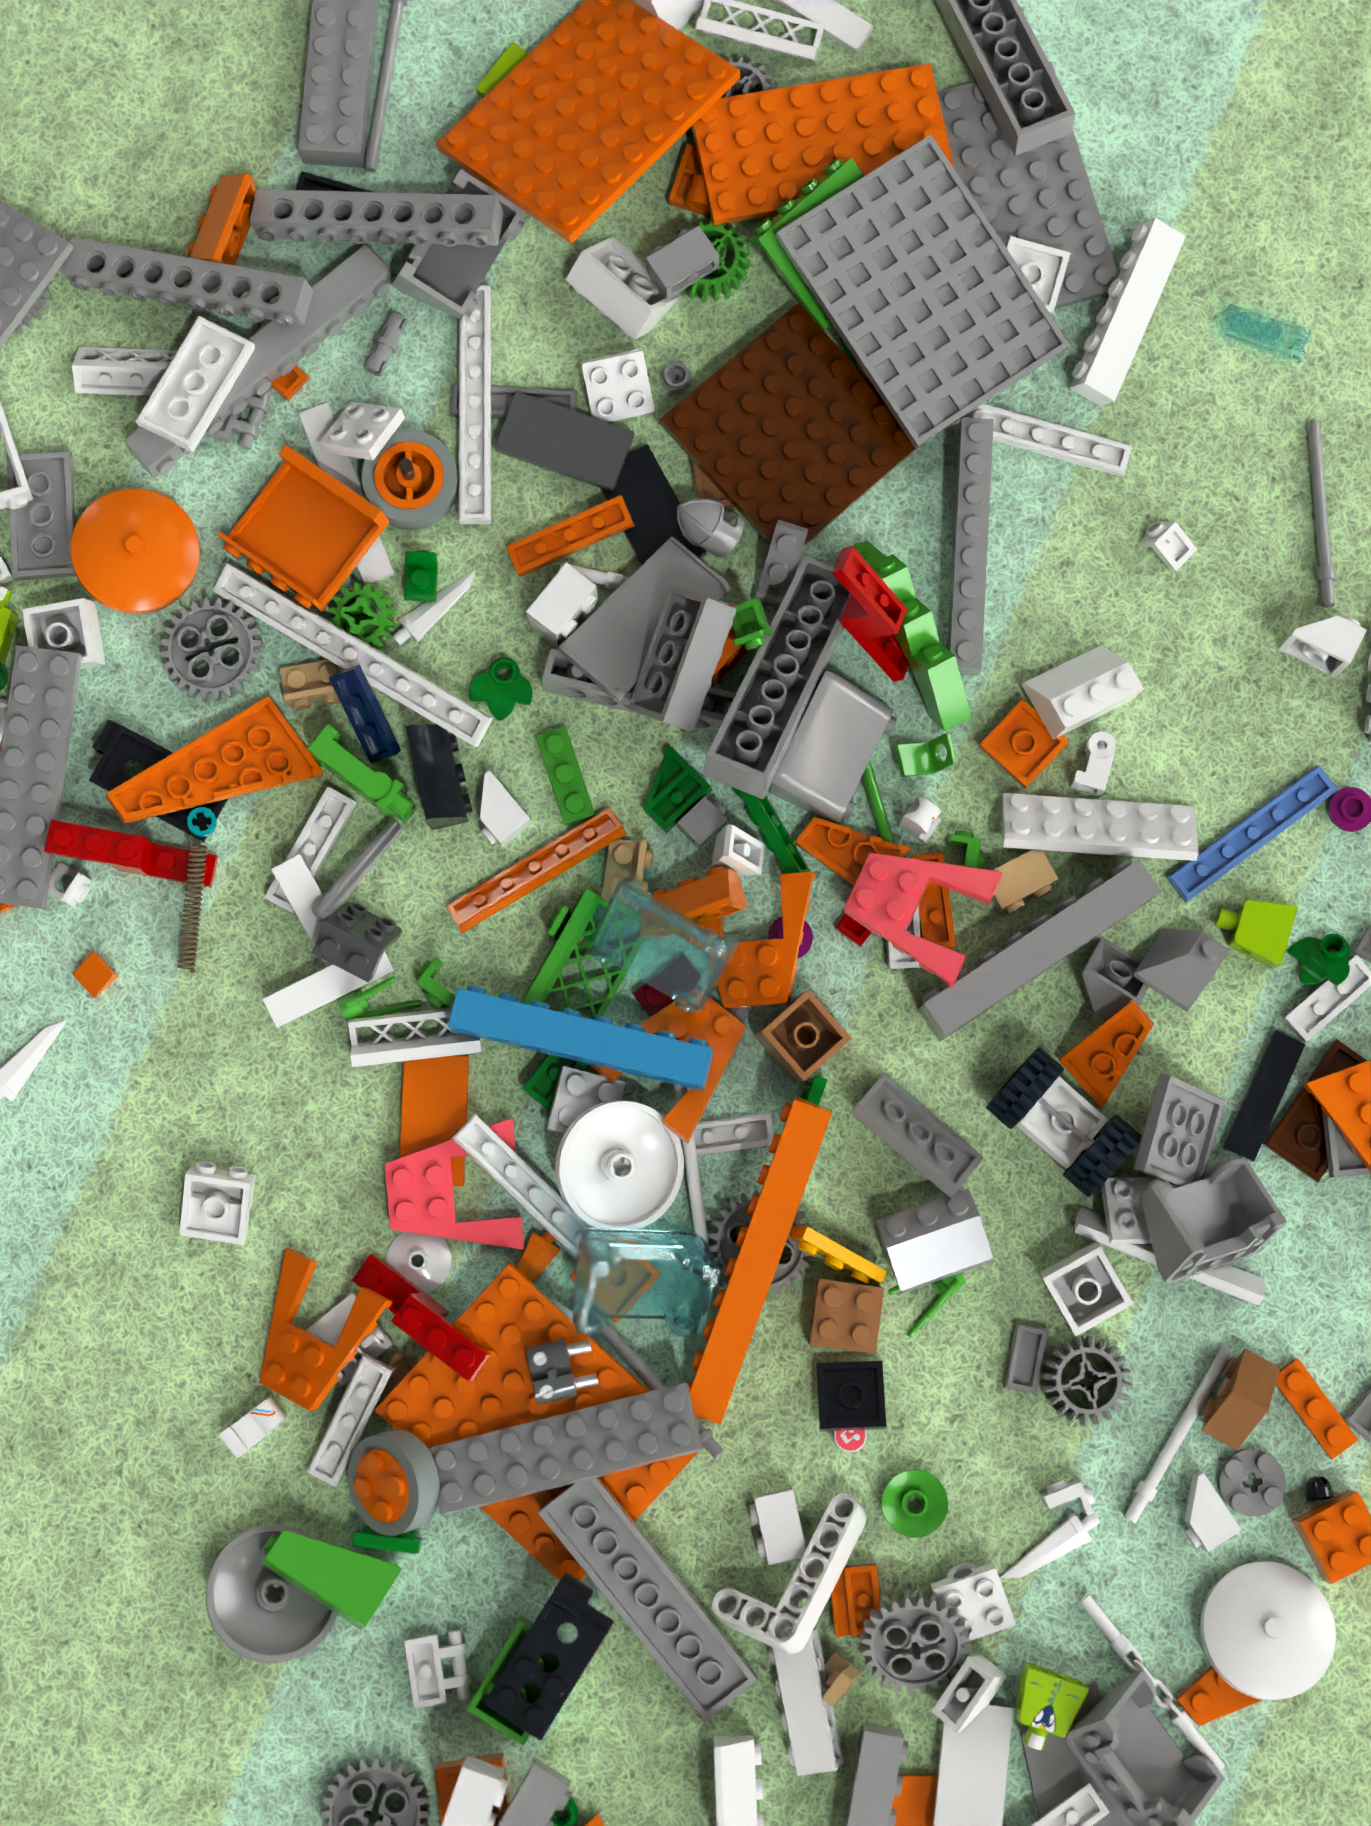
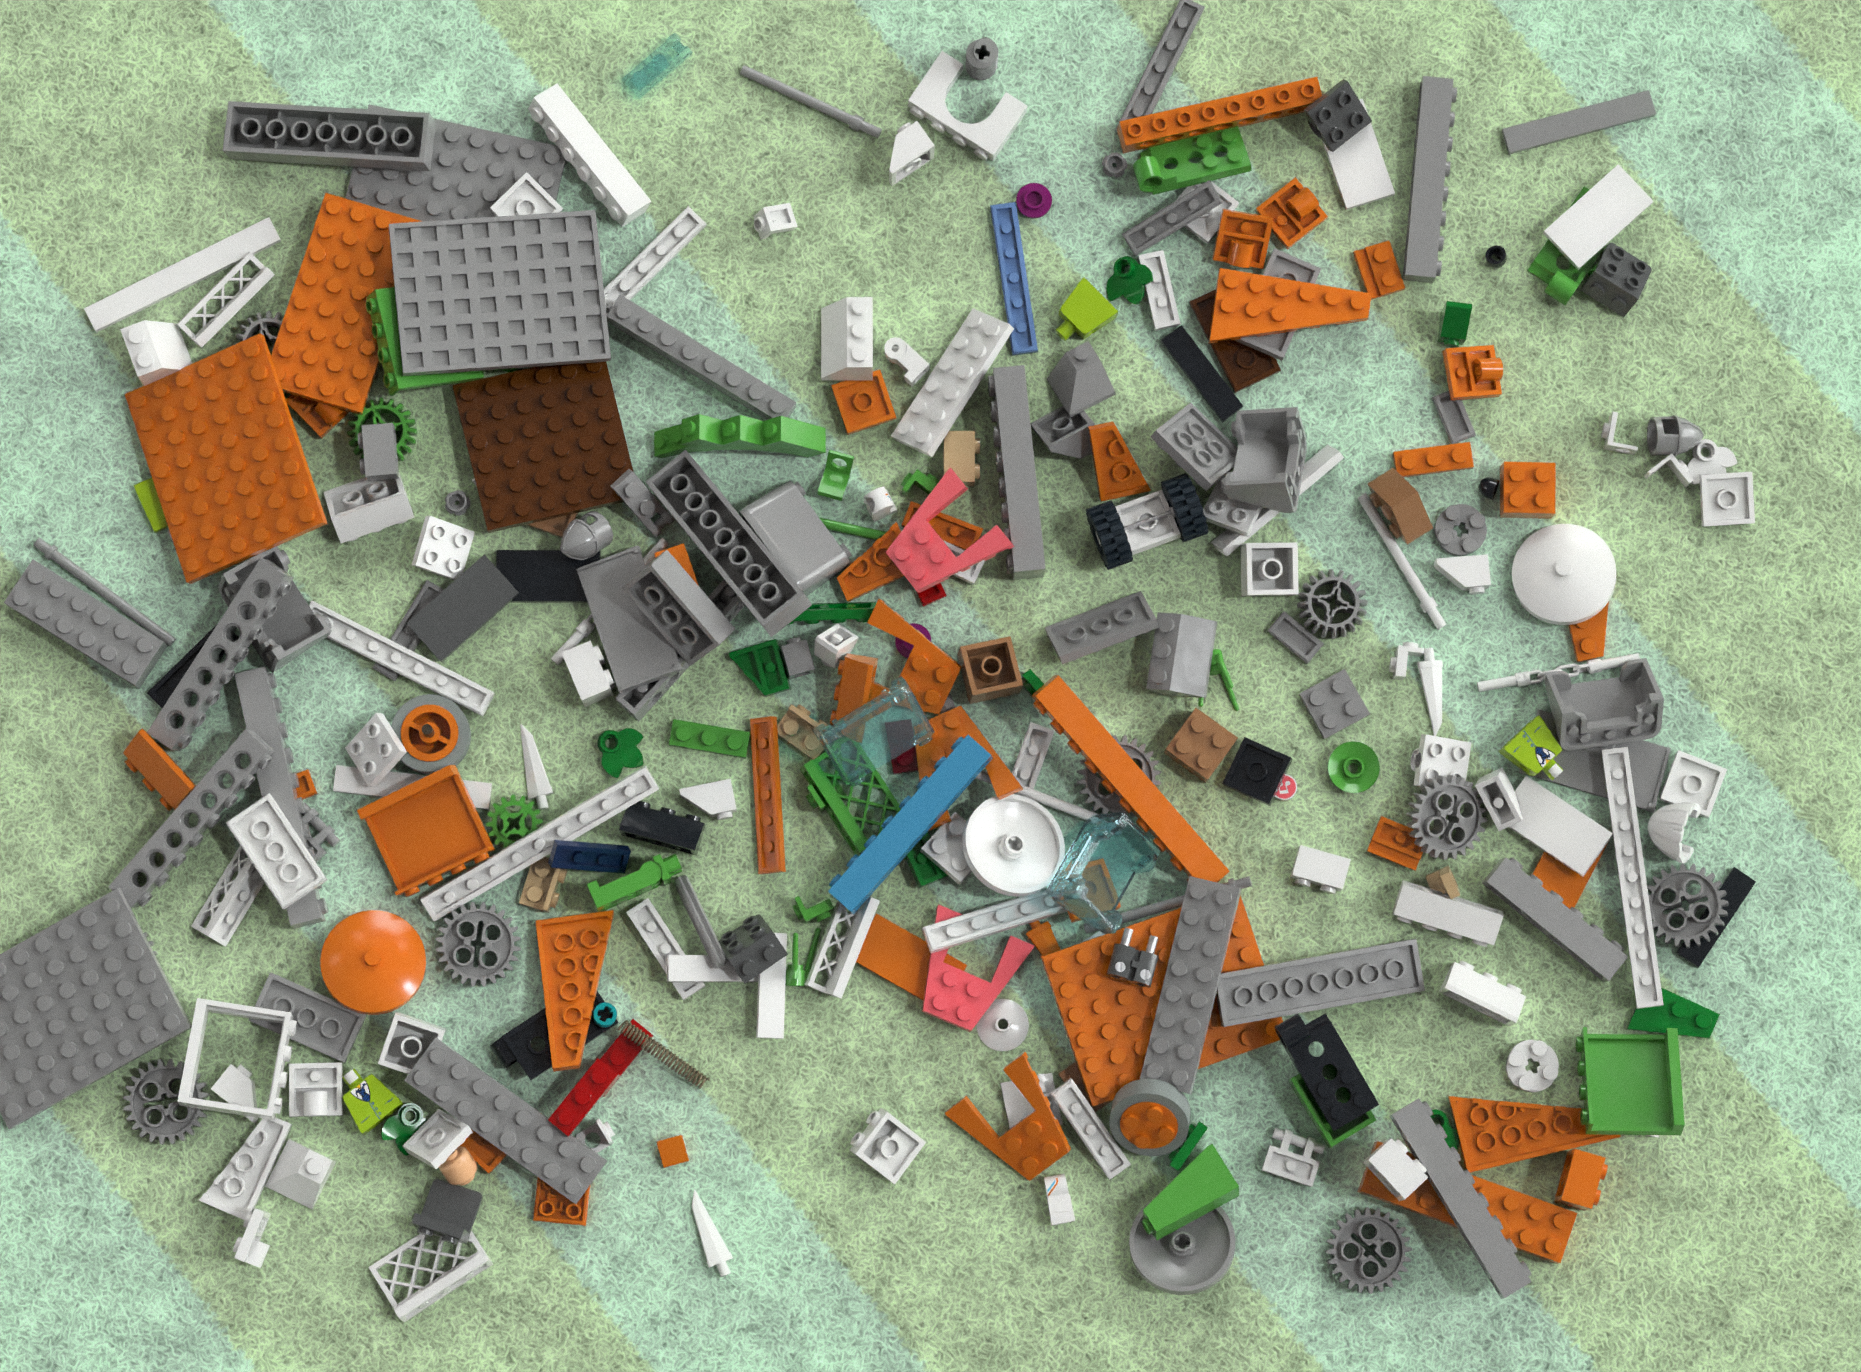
camera: 65 degrees left, 0 degrees up
(385, 344) = (314, 700): light grey pin -> none
(421, 576) = (506, 764): green bracket -> none
(422, 1318) = (1046, 1038): red bracket -> none
(570, 536) = (536, 641): orange plate -> none
(750, 624) = (681, 546): bright green bracket -> none
(801, 1585) = (1369, 873): white beam -> none
(836, 1255) = (1156, 728): yellow plate -> none
(872, 613) = (719, 456): red bracket -> none
(975, 1443) = (1334, 704): none -> light grey plate

